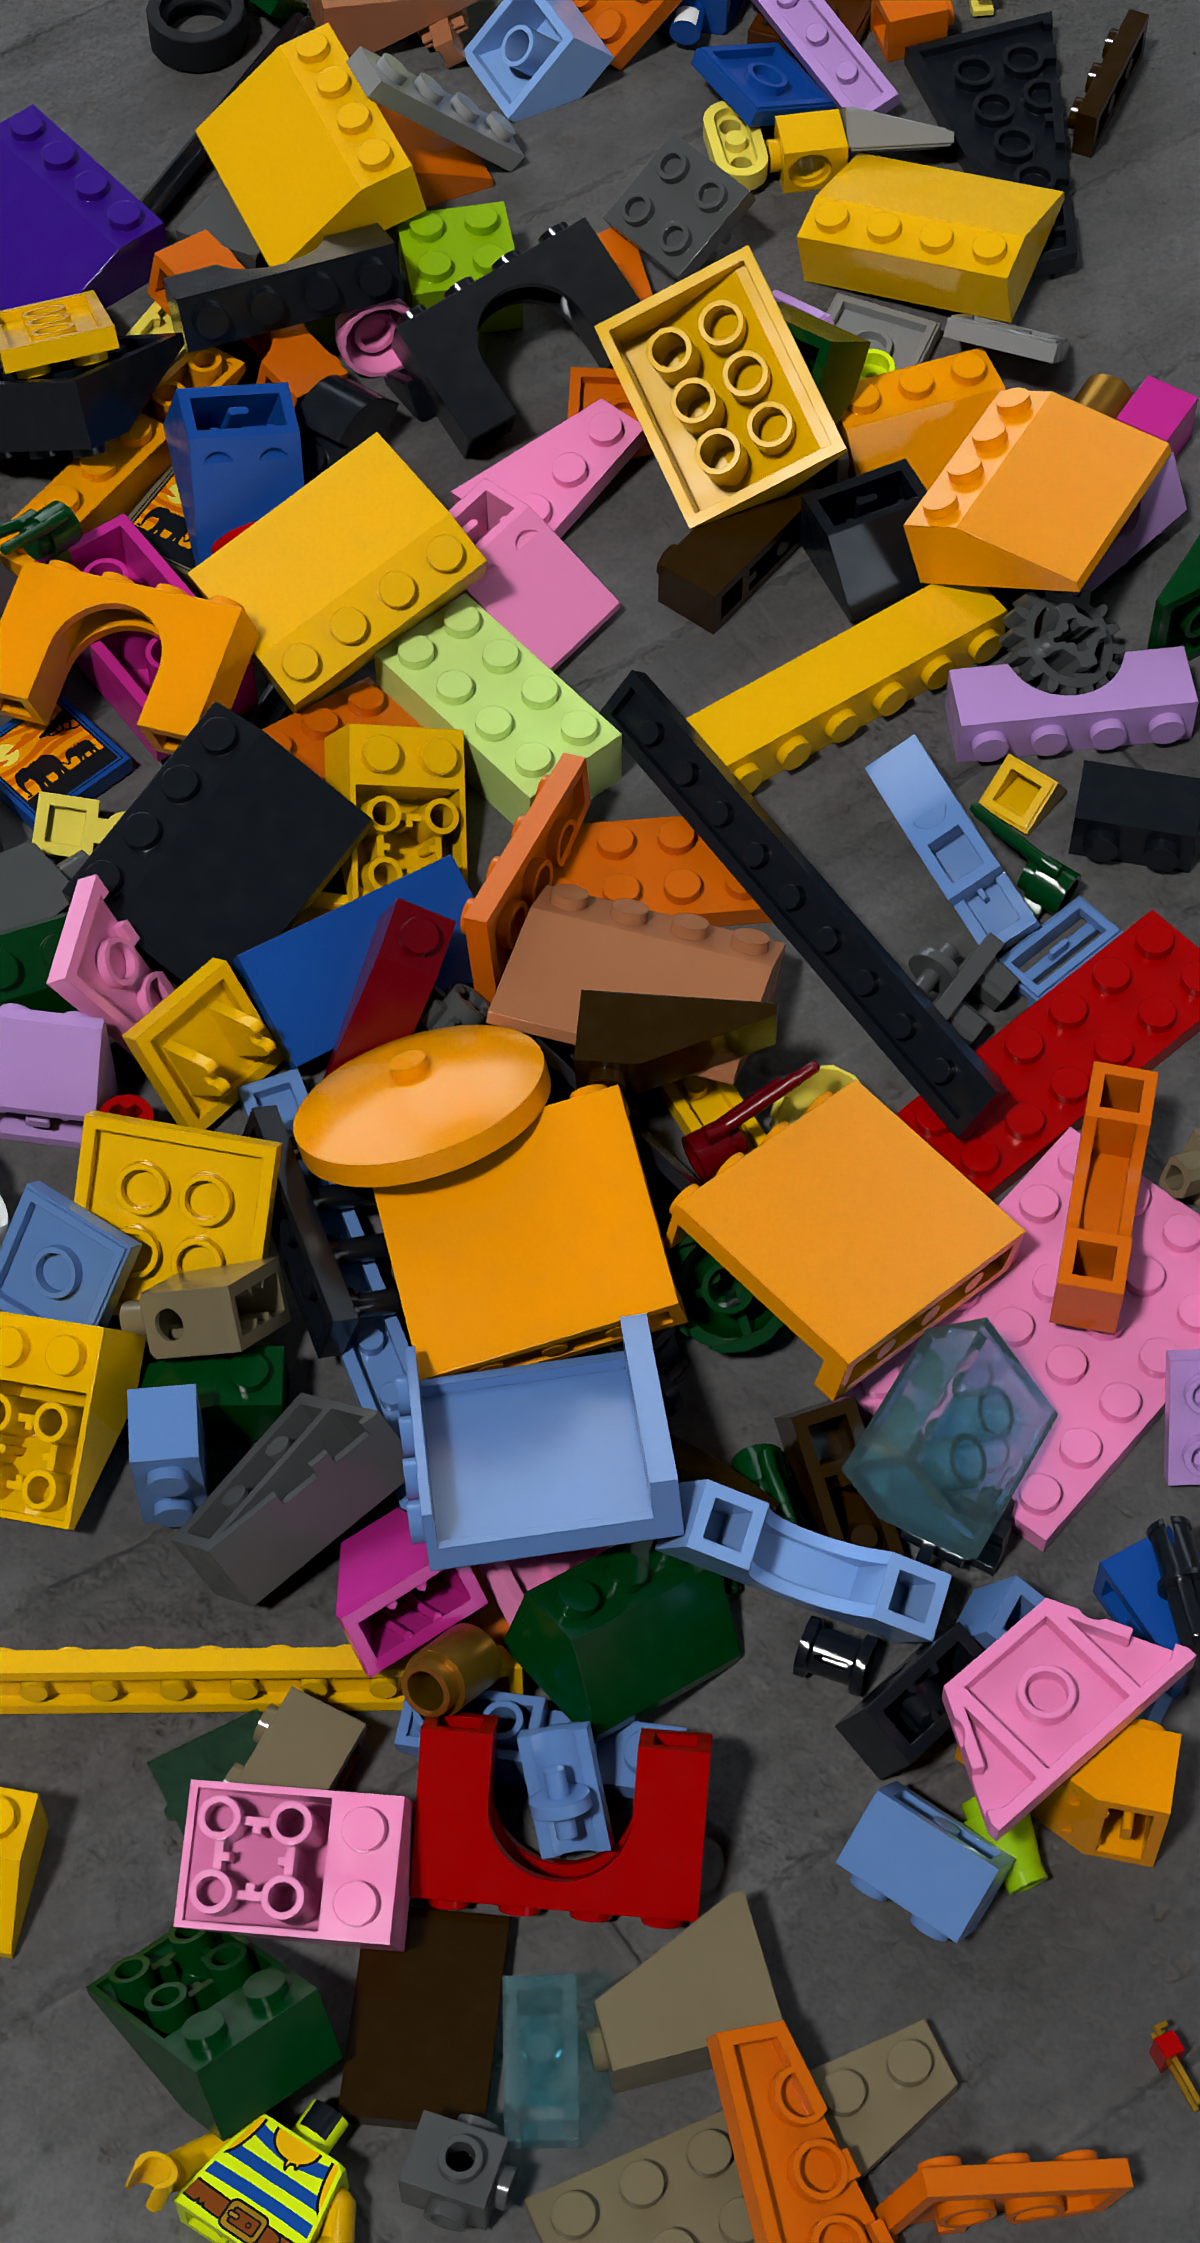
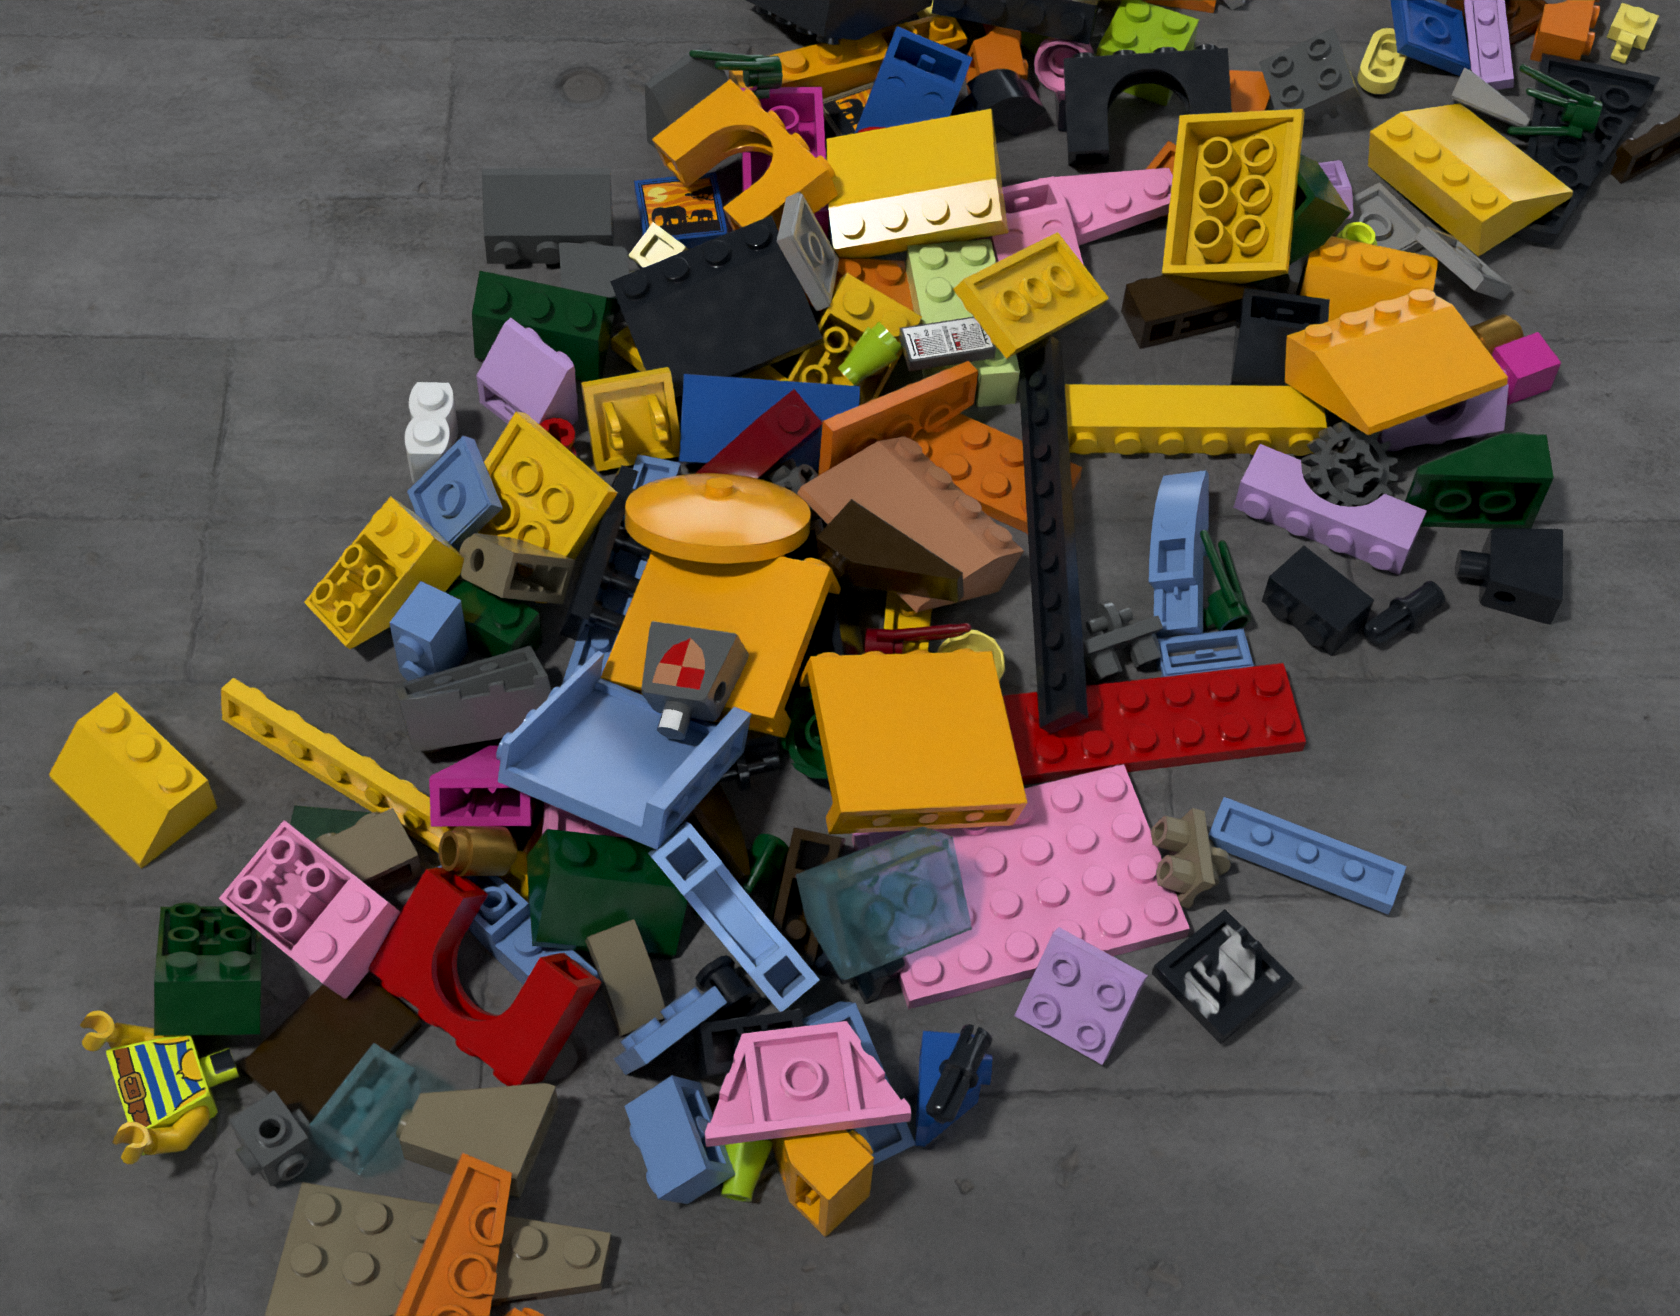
camera: 30 degrees right, 0 degrees up
(100, 967) = (598, 334): bright pink wing -> none
(284, 721) = (808, 251): none -> light grey plate
(441, 805) = (871, 353): none -> lime cone
(521, 745) = (945, 343): none -> tile
(545, 1309) = (690, 674): none -> dark grey torso
(565, 1789) = (494, 960): medium blue hips -> none
(574, 635) = (1030, 294): none -> yellow plate
(711, 1699) = (626, 976): none -> dark tan slope
(807, 149) = (1426, 83): yellow brick -> none
(821, 1742) = (680, 1018): none -> medium blue plate
(1005, 96) = (1579, 111): none -> dark green plant
(1021, 795) = (1256, 548): yellow slope -> none
(1104, 1198) = (1067, 842): orange arch -> none

